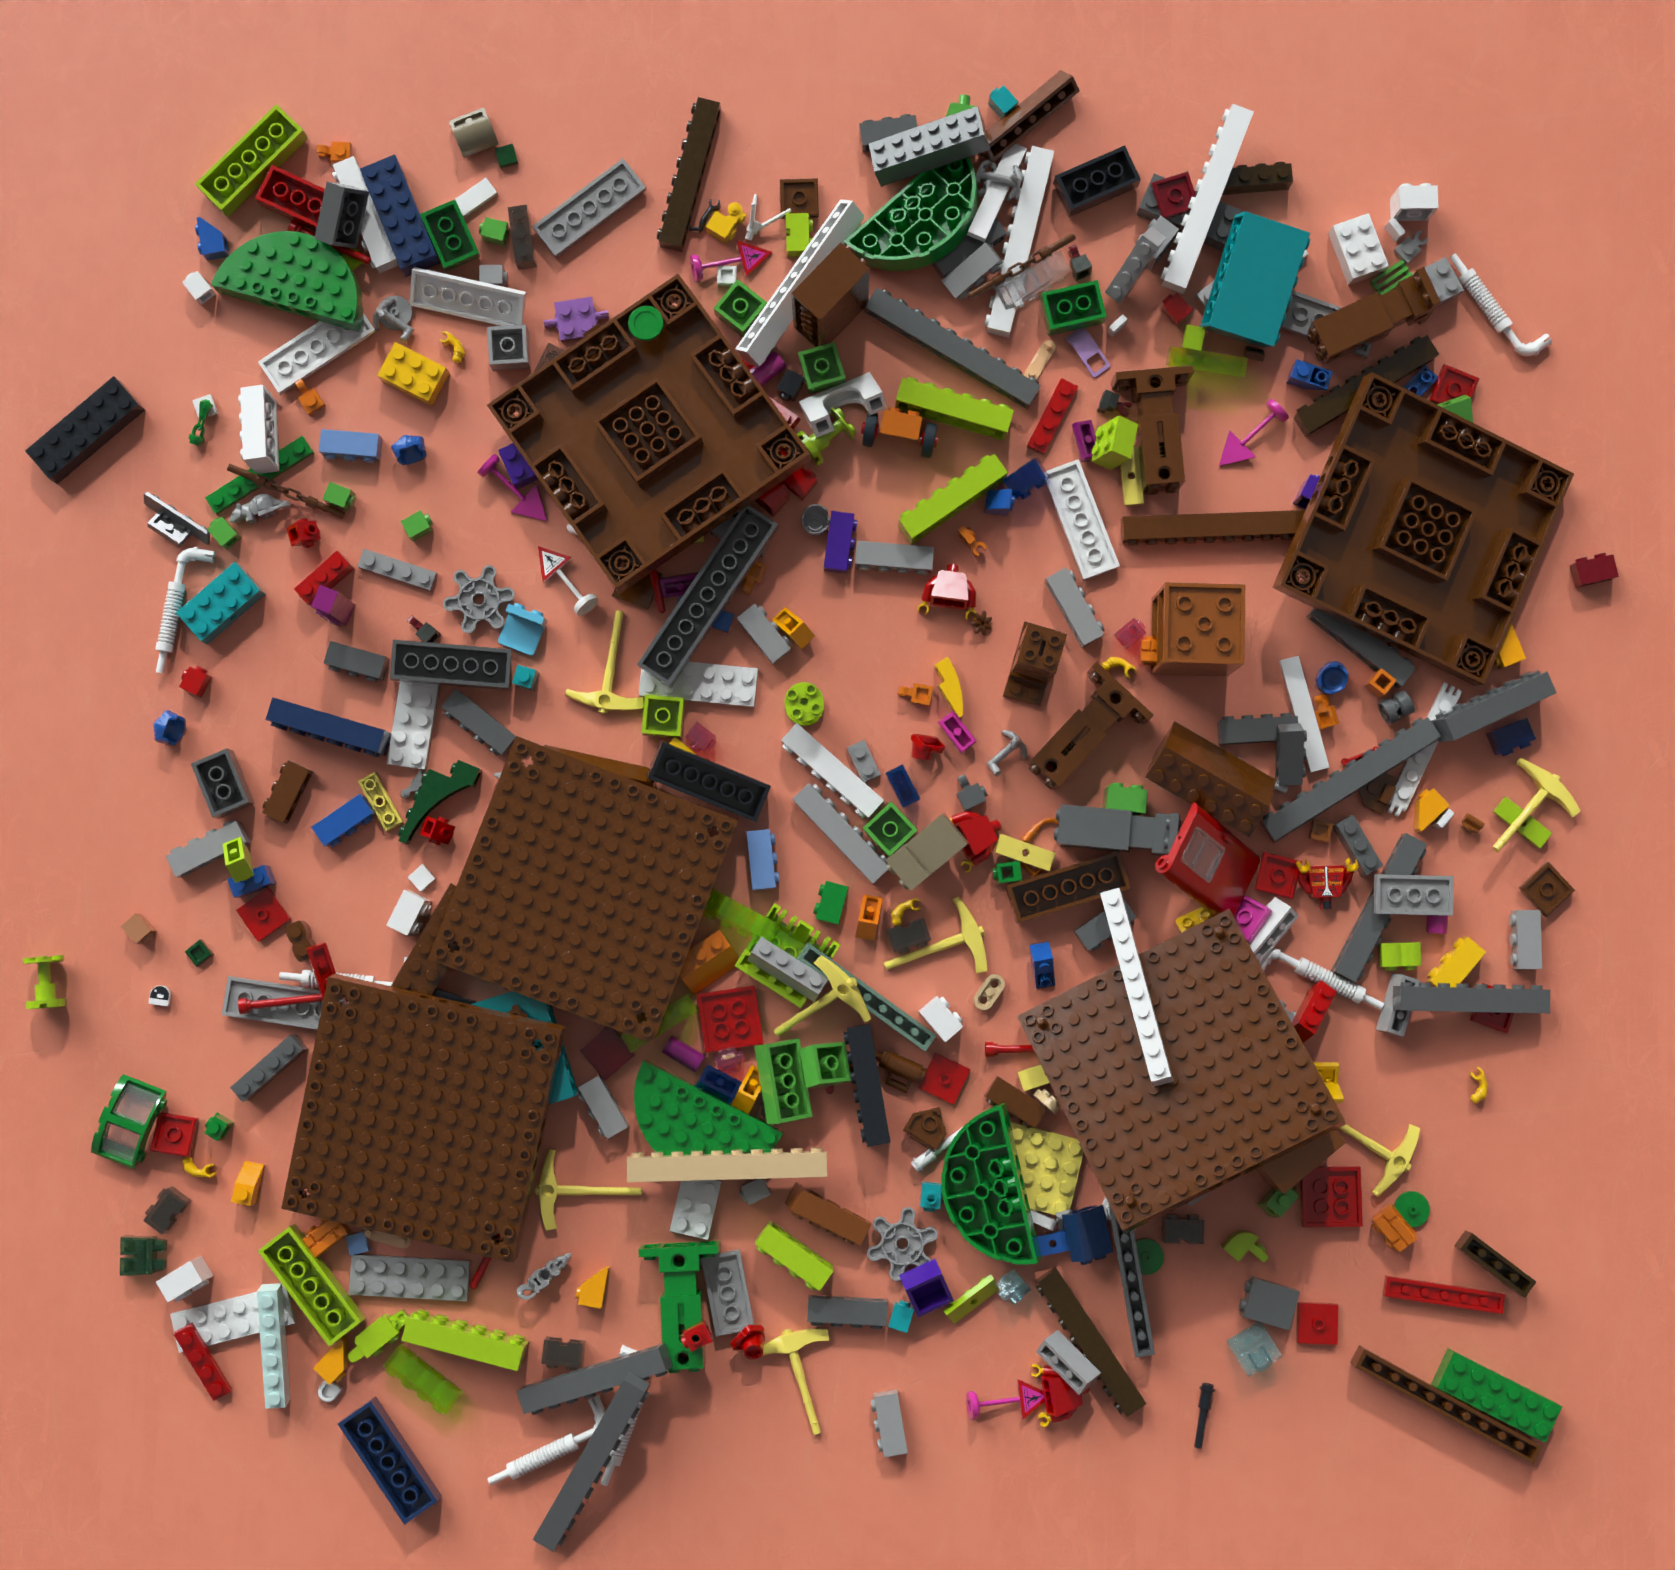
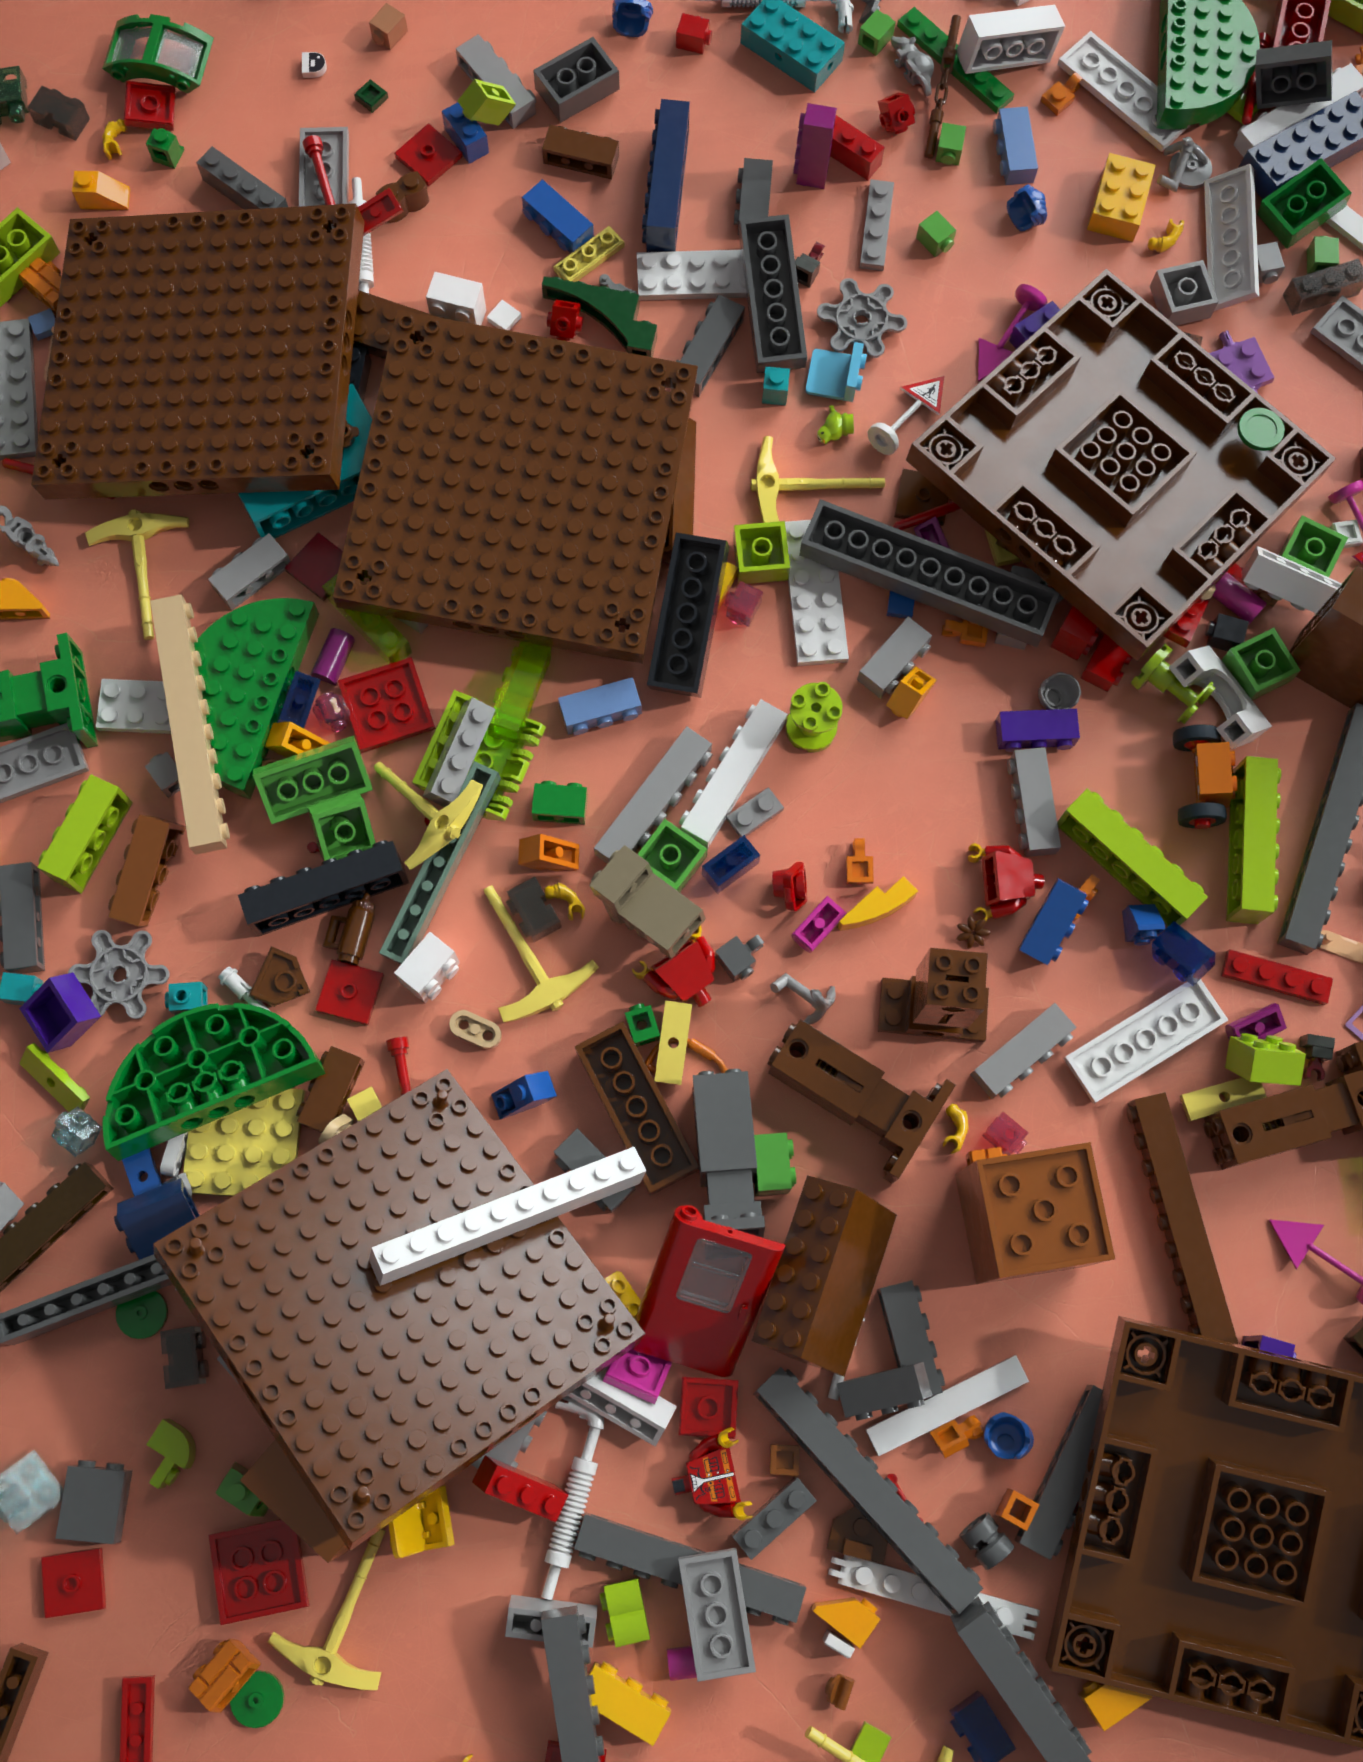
camera: 75 degrees right, 10 degrees down
(567, 638) = (836, 426): none -> lime animal
(708, 962) = (455, 661): orange slope -> none
(988, 565) = (1054, 922): none -> blue brick

